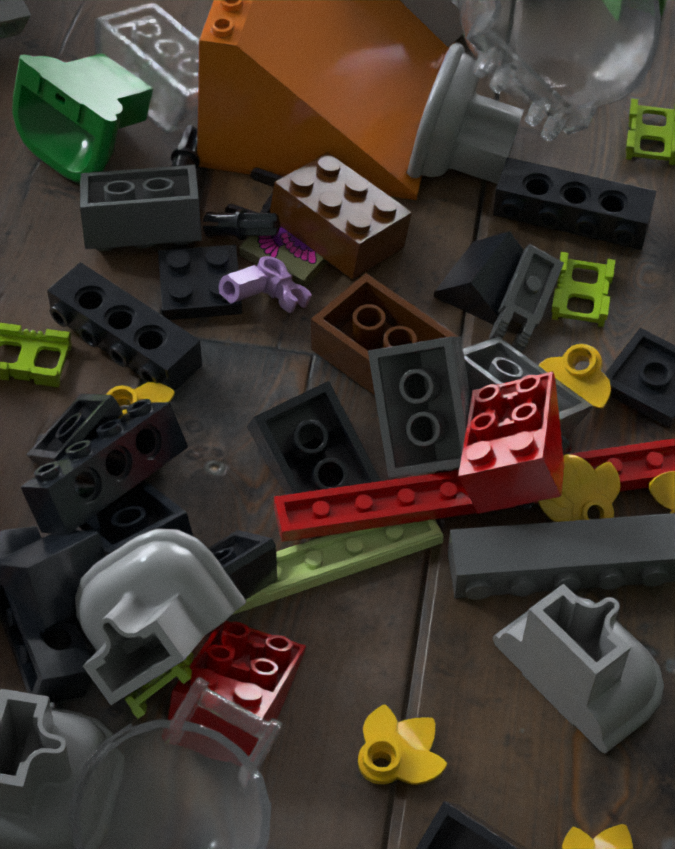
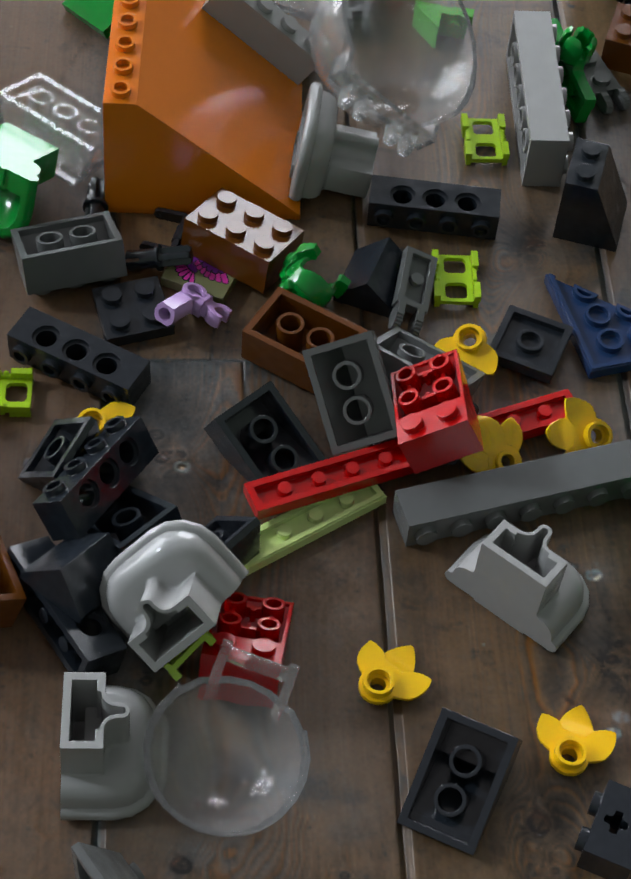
camera: 15 degrees left, 0 degrees up
(400, 274) = (306, 282): none -> green helmet

